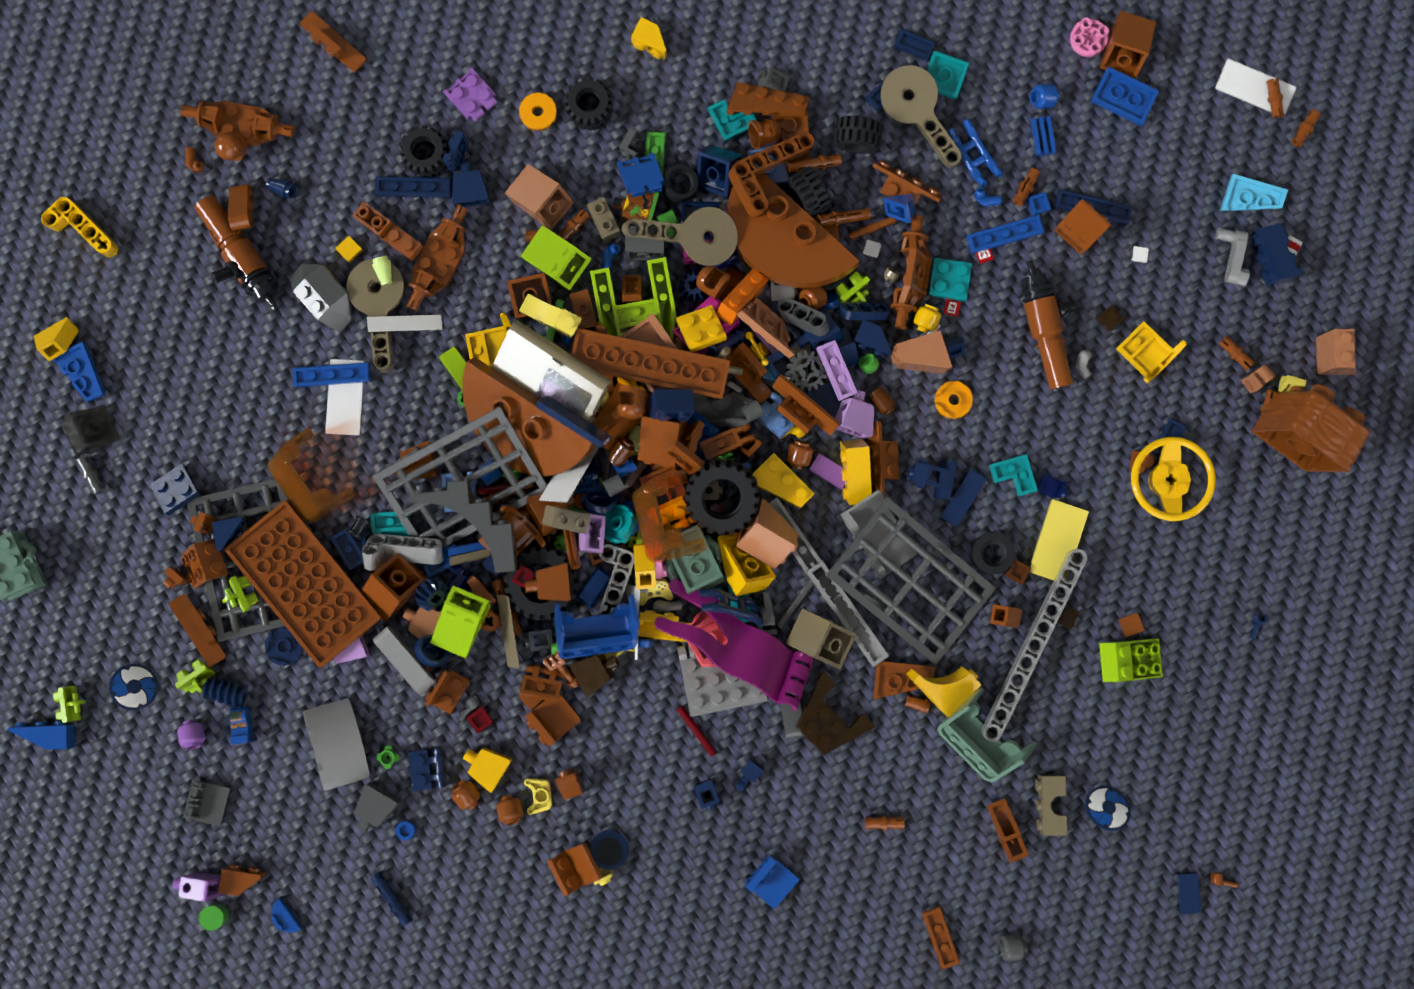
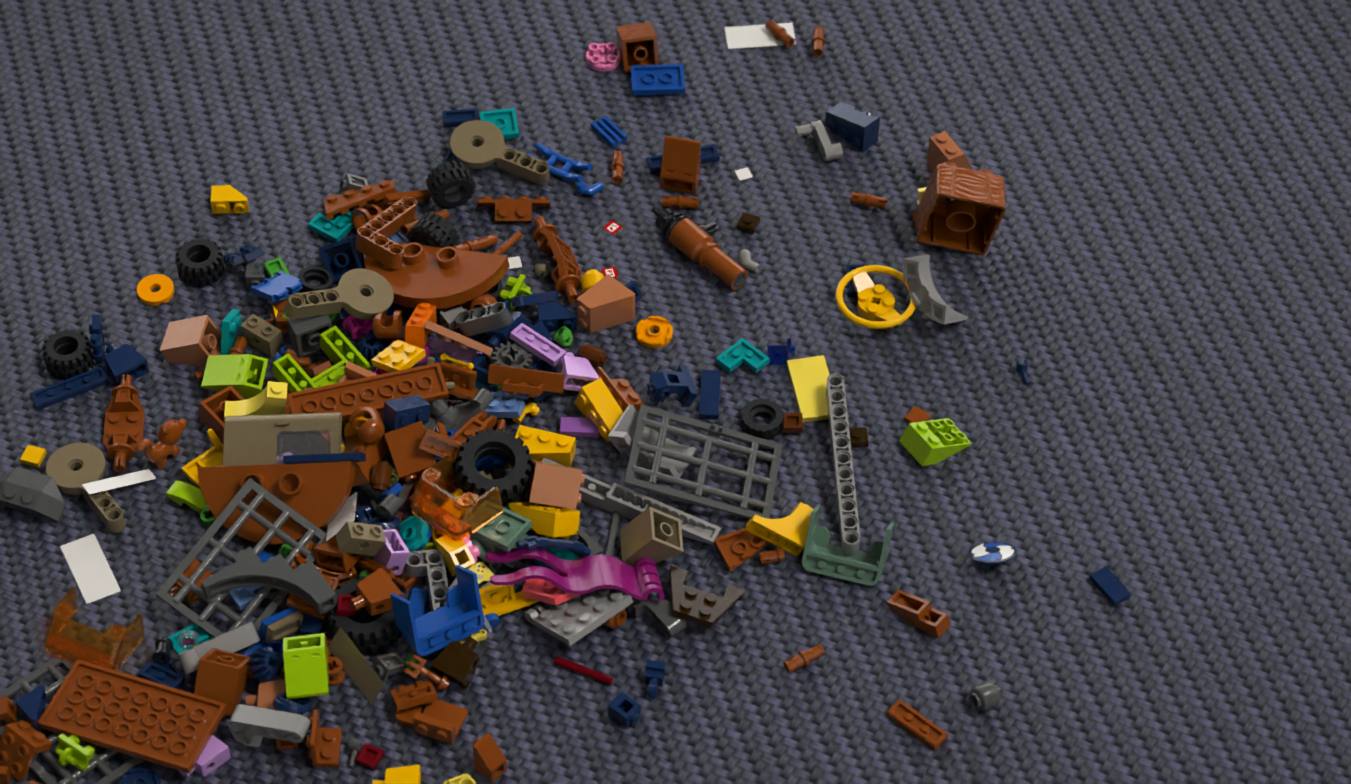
camera: 30 degrees left, 35 degrees down
(331, 375) = (68, 555): blue tile -> none
(383, 270) = (77, 445): yellowish green cone -> none
(383, 528) = (188, 639): none -> clear tile
(387, 231) = (61, 426): dark orange slope -> none
(464, 302) = (168, 436): none -> dark orange animal
(471, 95) = (86, 302): medium lavender plate -> none
(577, 199) = (230, 327): none -> teal wing
(616, 260) = (303, 362): none -> dark orange arm
(632, 118) = (245, 253): none -> dark blue plate
(771, 881) = (730, 751): blue bracket -> none
(799, 454) = (544, 420): dark orange head -> none
(811, 124) = (418, 195): none -> dark orange axle
(900, 207) = (517, 219): blue slope -> none
(949, 279) = (595, 253): teal plate -> none
(1005, 234) = (621, 206): blue tile -> none
(1006, 616) = (804, 454): dark orange brick -> none
(1039, 204) = (636, 175): blue tile -> none
(1044, 96) = (591, 104): blue head -> none
(1048, 788) = (950, 586): dark tan arch -> none
(1061, 260) = (680, 202): none -> dark orange pin
(1148, 351) = (795, 228): yellow piece -> none
(1148, 461) = (849, 302): dark orange tile -> none
(1217, 878) = (1127, 564): dark orange hand -> none
(1220, 506) = (923, 292): none -> light grey panel
(1250, 194) = (806, 98): medium azure wing -> none
(1258, 378) = (898, 205): nougat leg -> none

